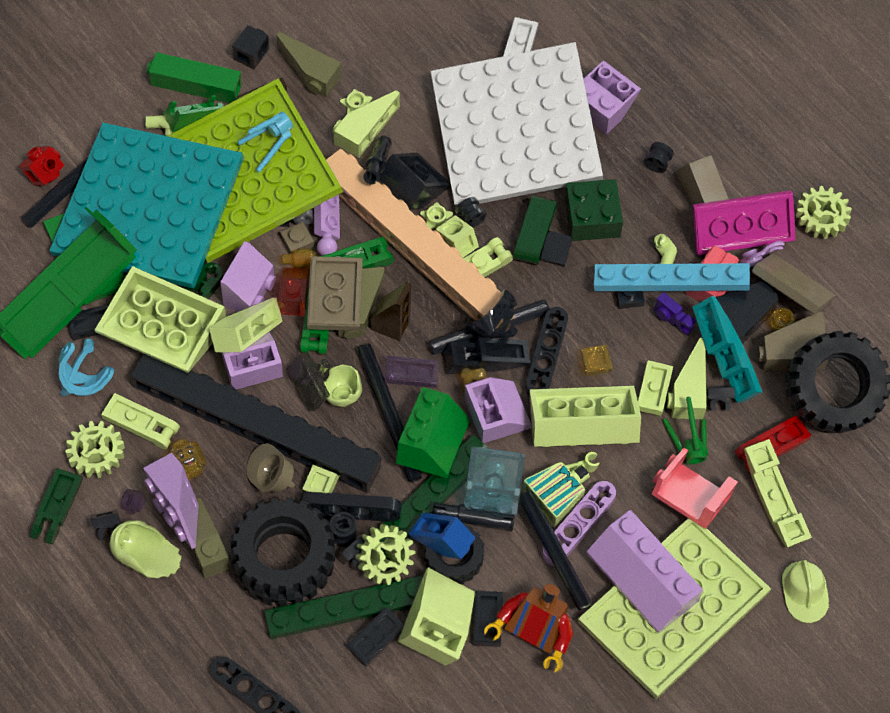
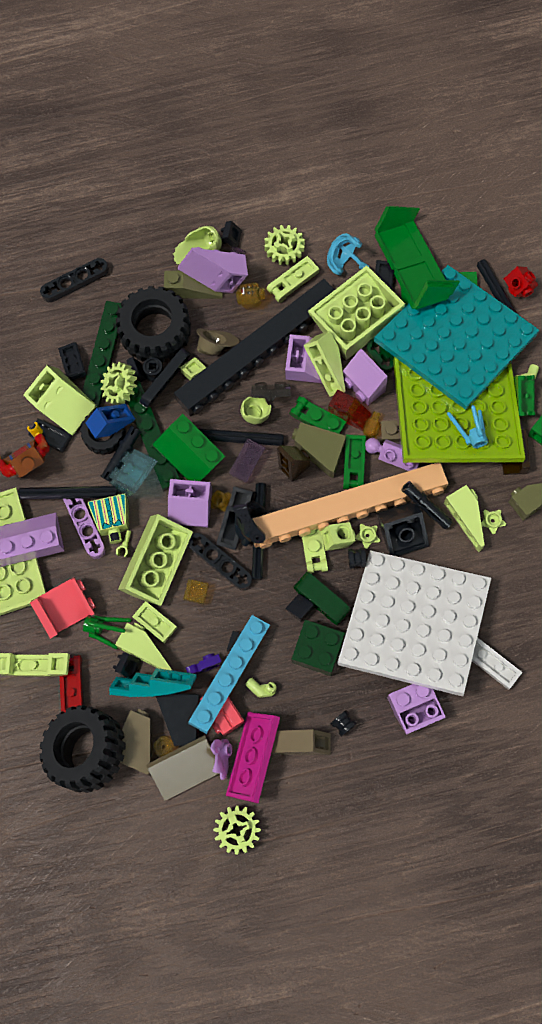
camera: 125 degrees right, 10 degrees up
(56, 504) = (258, 211): dark green hinge -> none
(335, 293) = (325, 428): dark tan tile -> none

